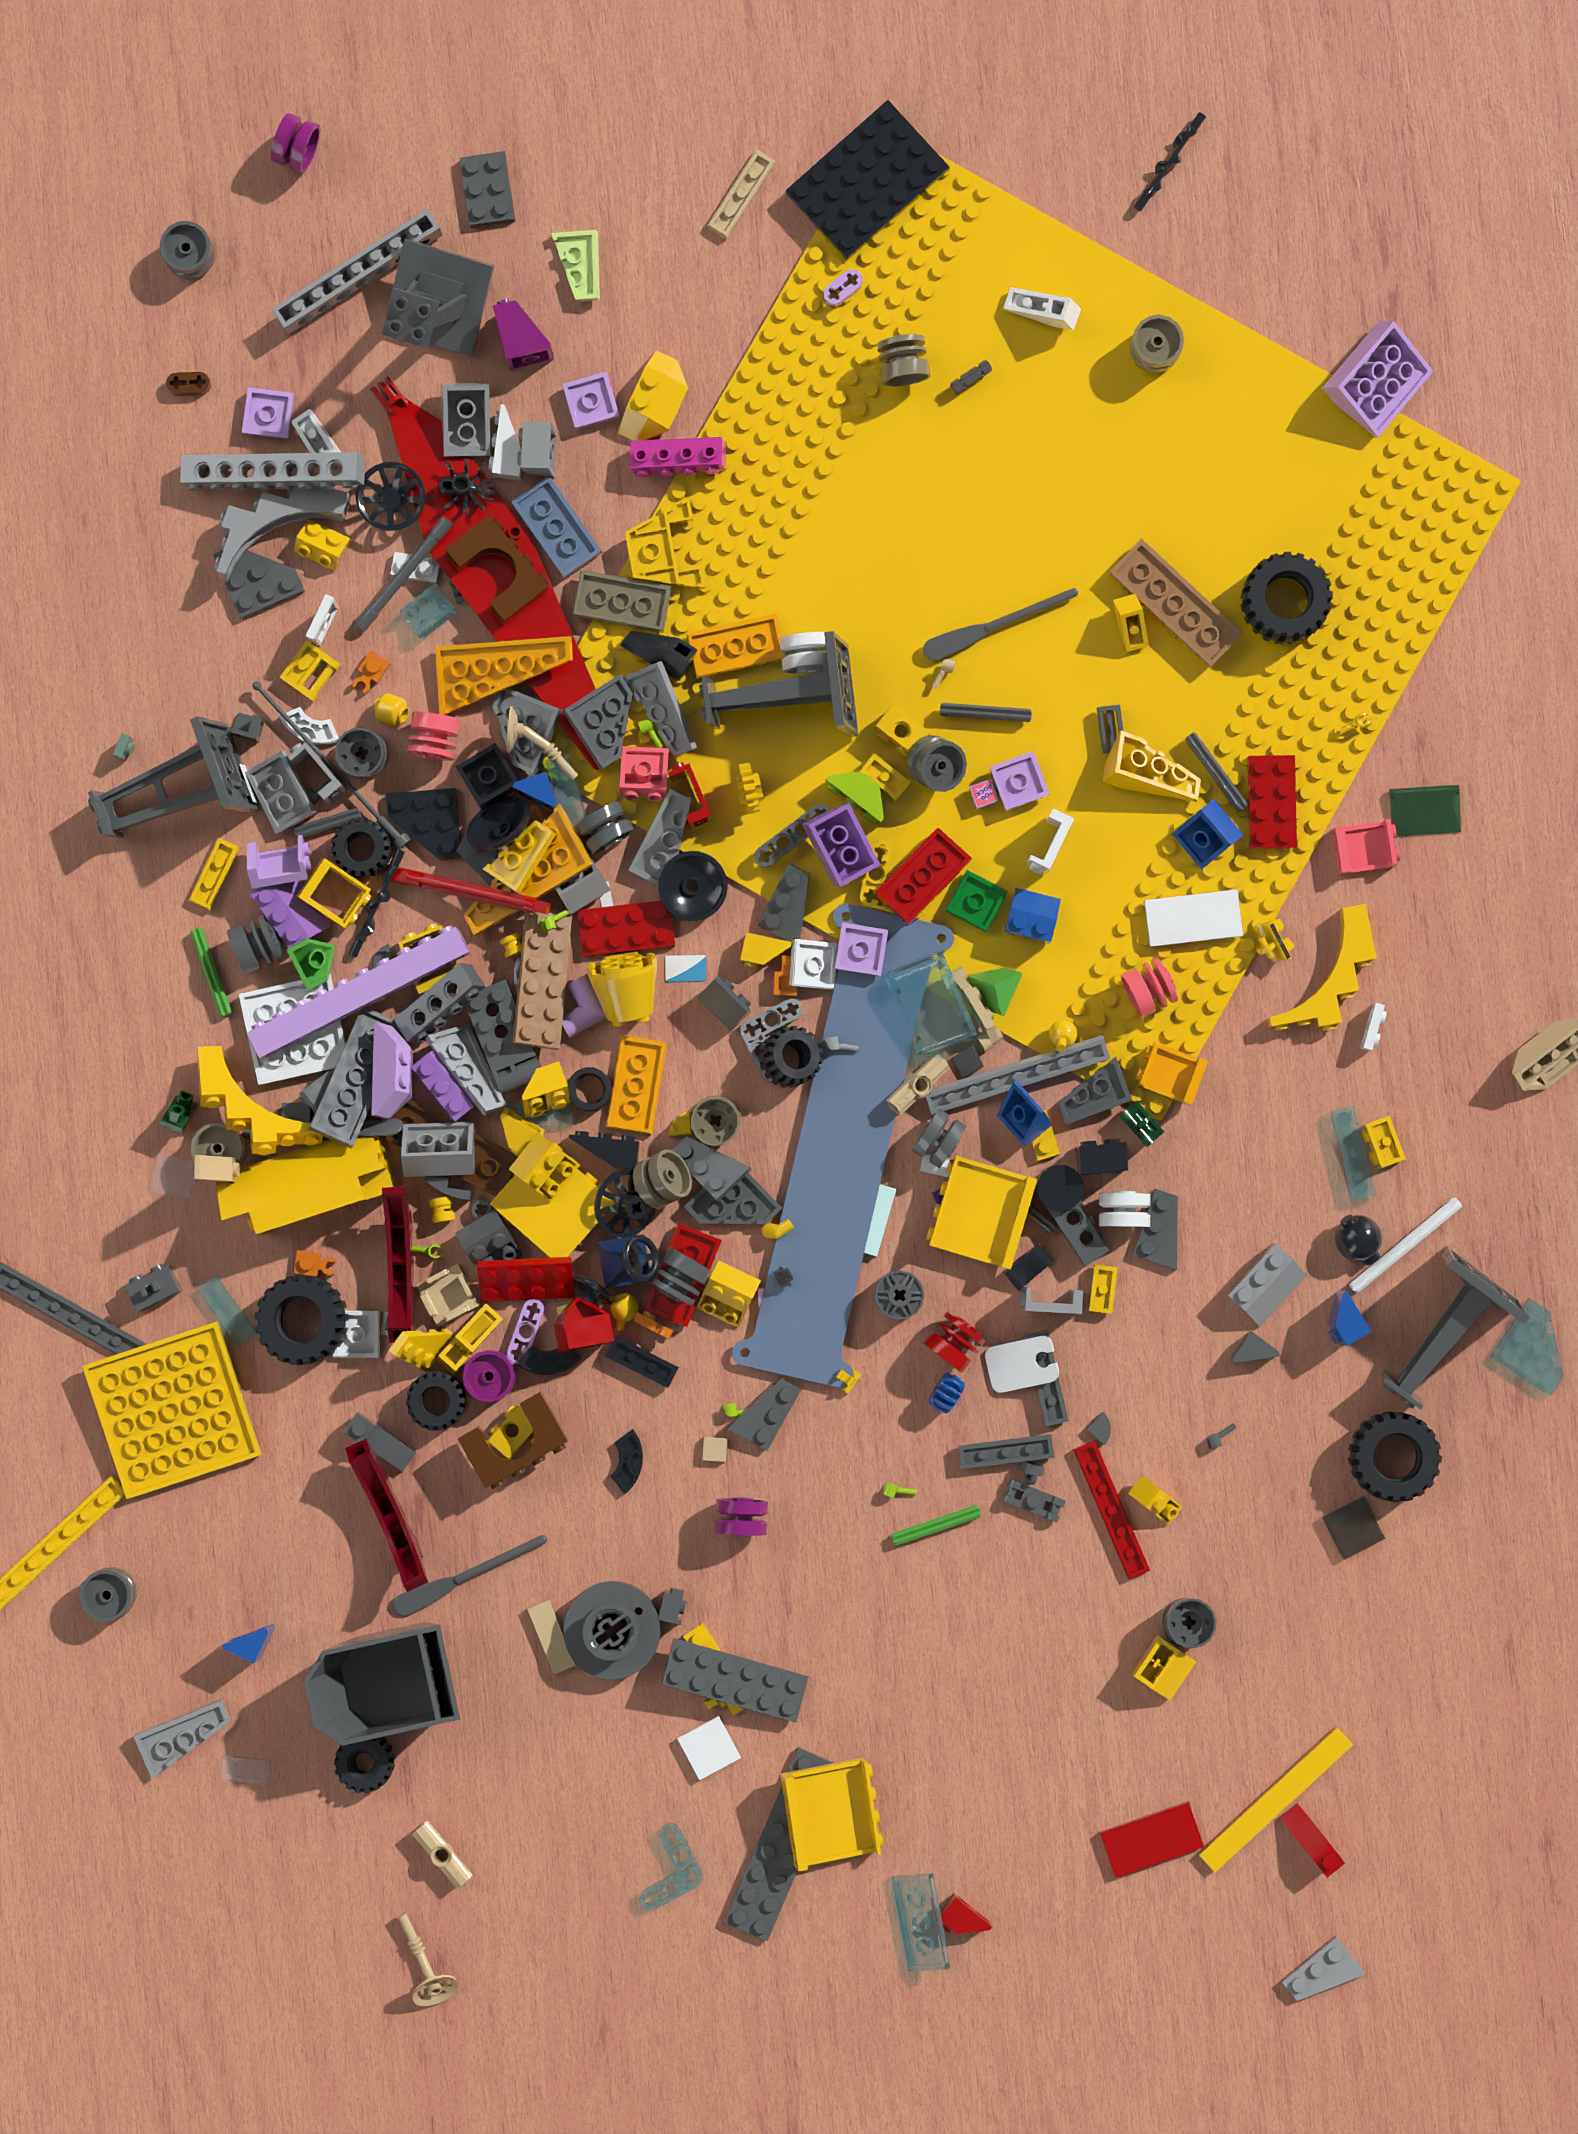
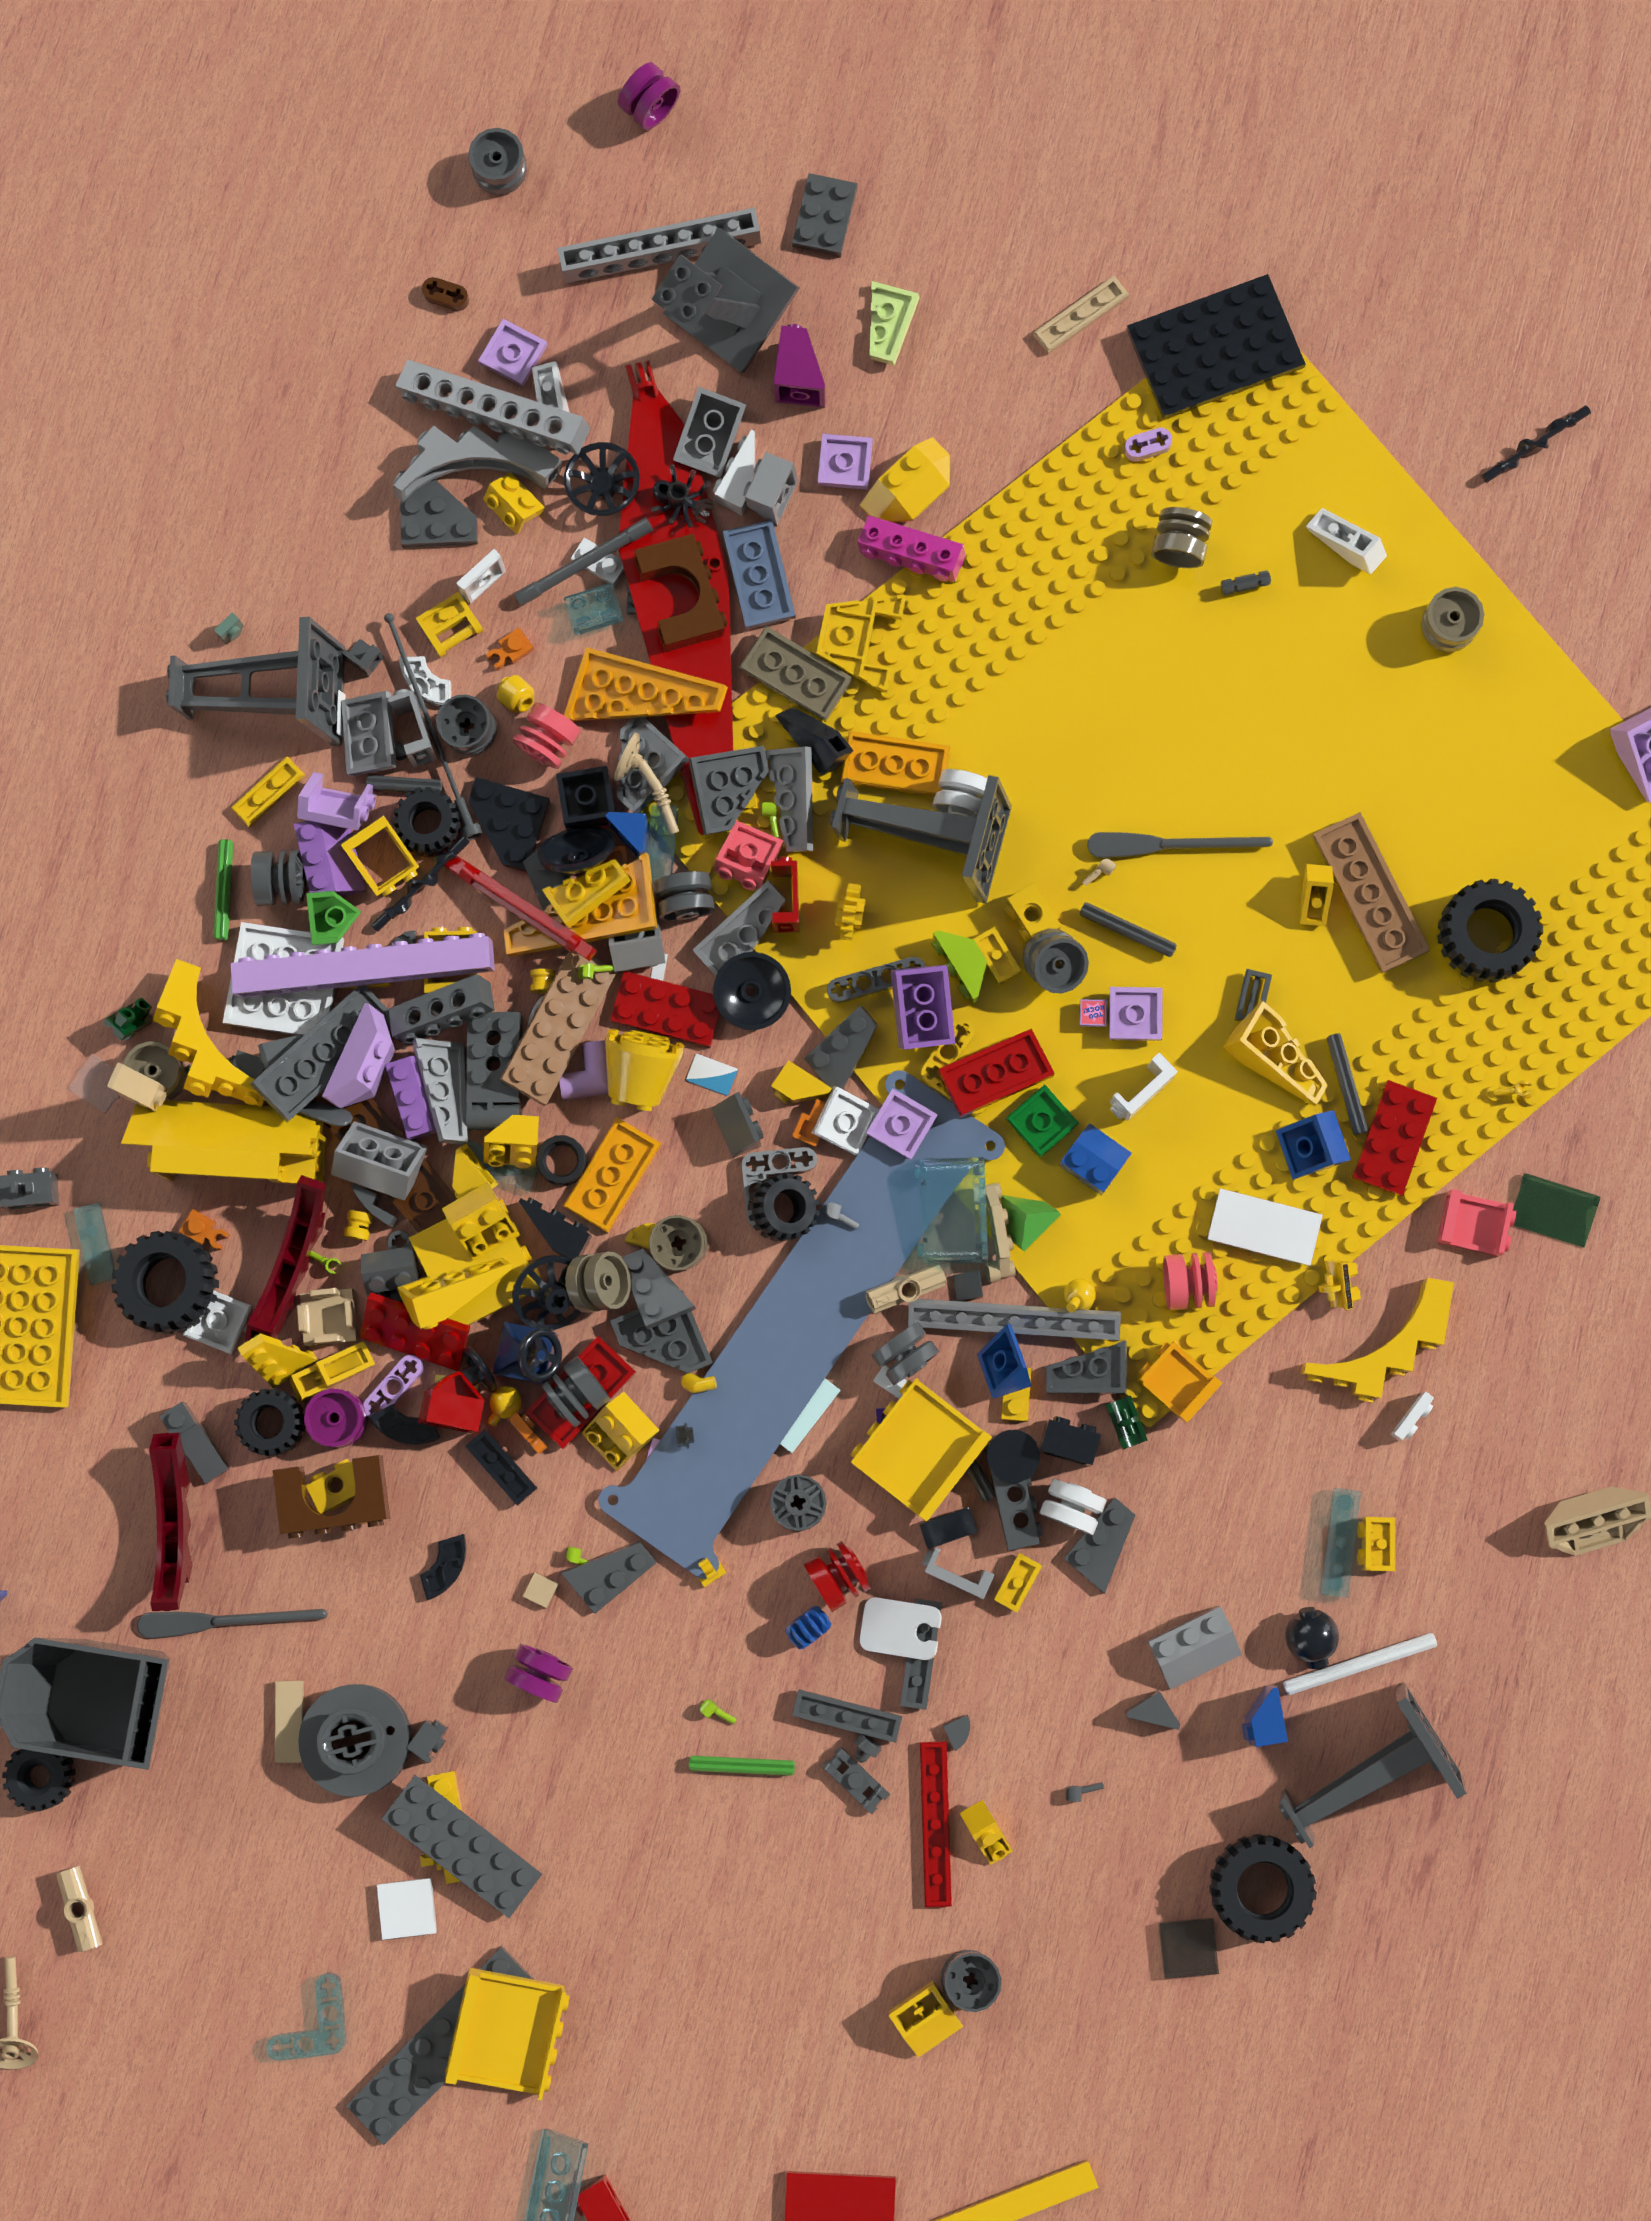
camera: 30 degrees right, 5 degrees down
(537, 1244) = (436, 1300): none -> yellow wedge
(1532, 1349) = (1455, 1831): clear light blue plate -> none

